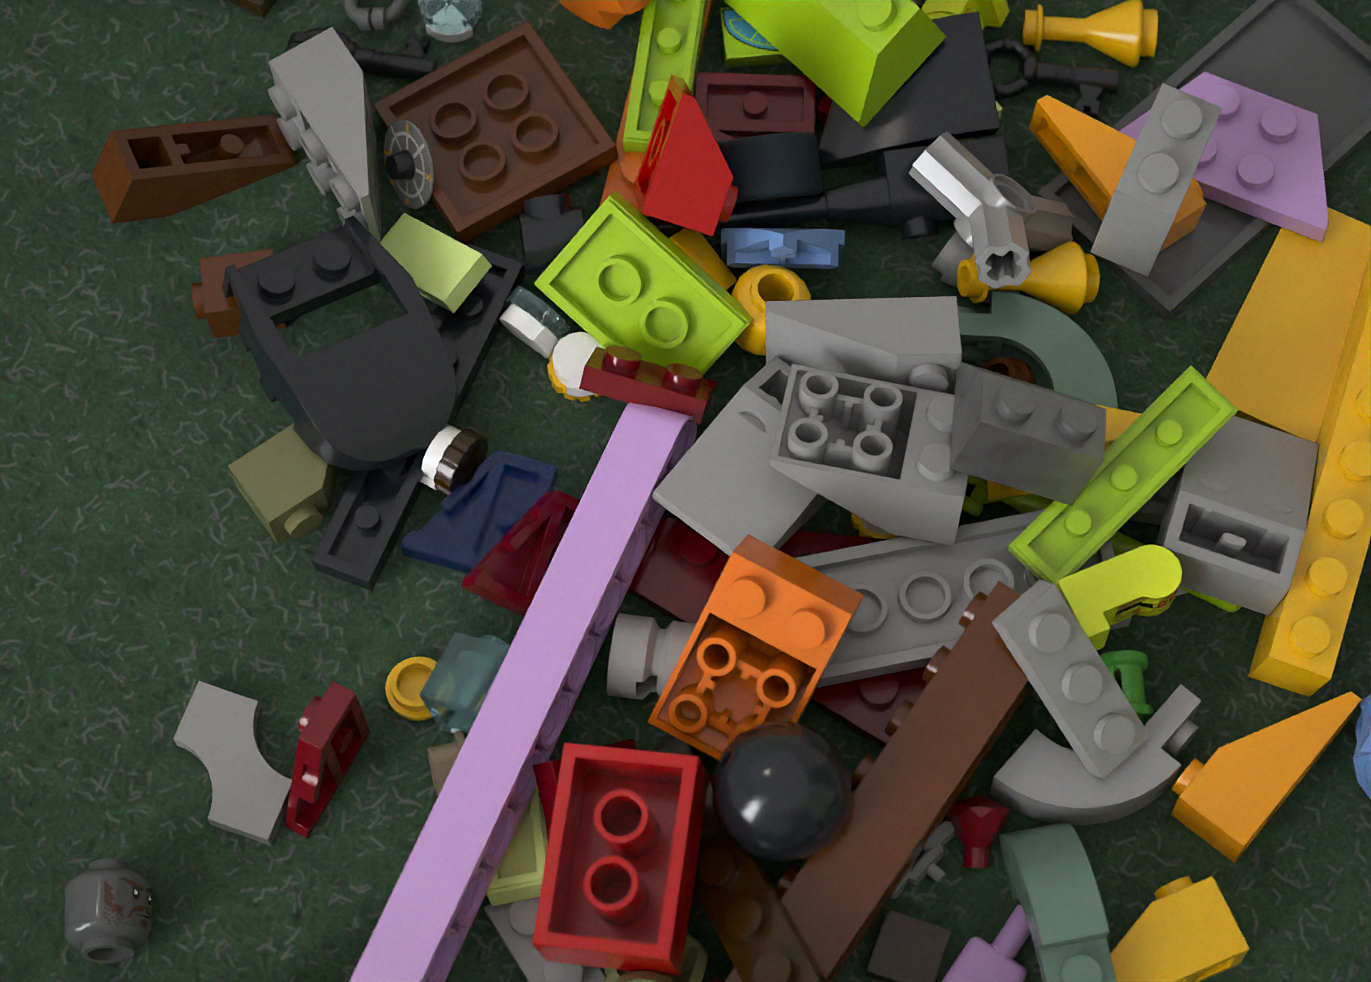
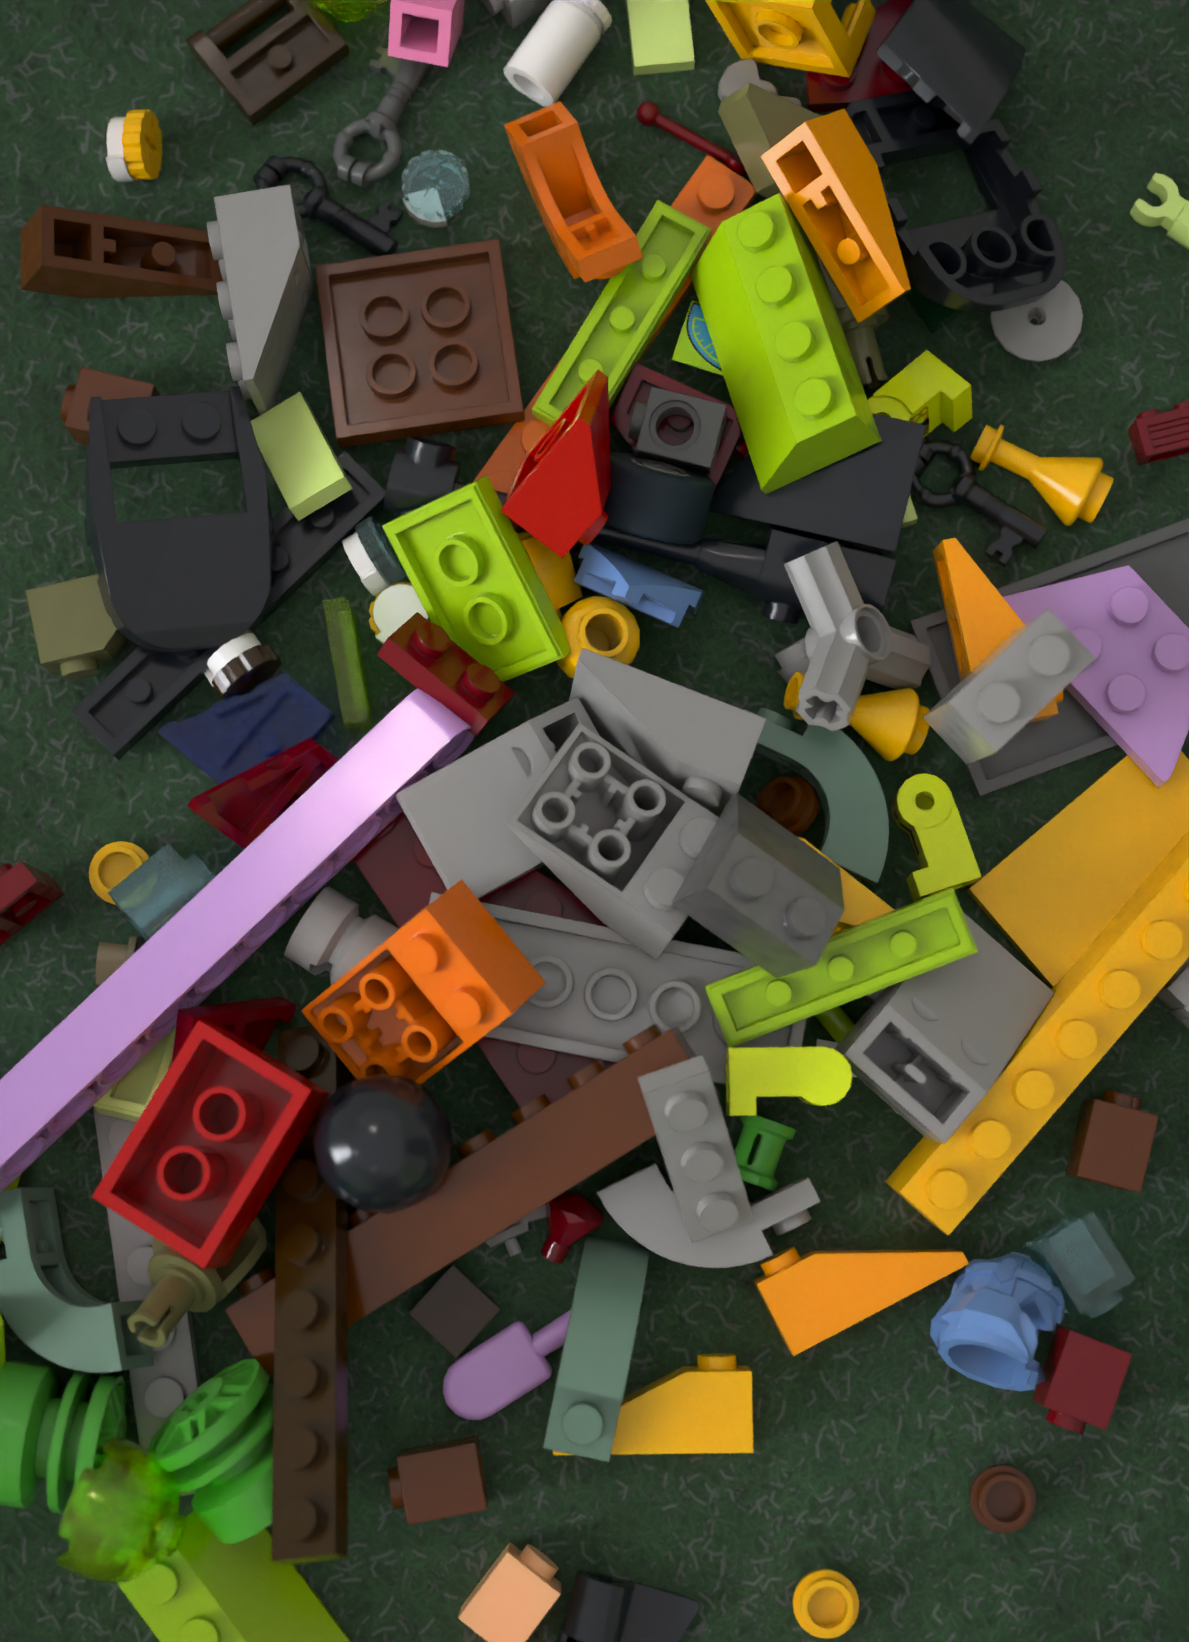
camera: 20 degrees right, 15 degrees up
(165, 70) = (134, 146): none -> yellow piece
(408, 163) = (320, 344): piece -> none
(551, 421) = (348, 665): none -> clear neon green tile
(774, 83) = (702, 447): none -> dark grey brick
(1142, 351) = (932, 820): none -> neon yellow leg

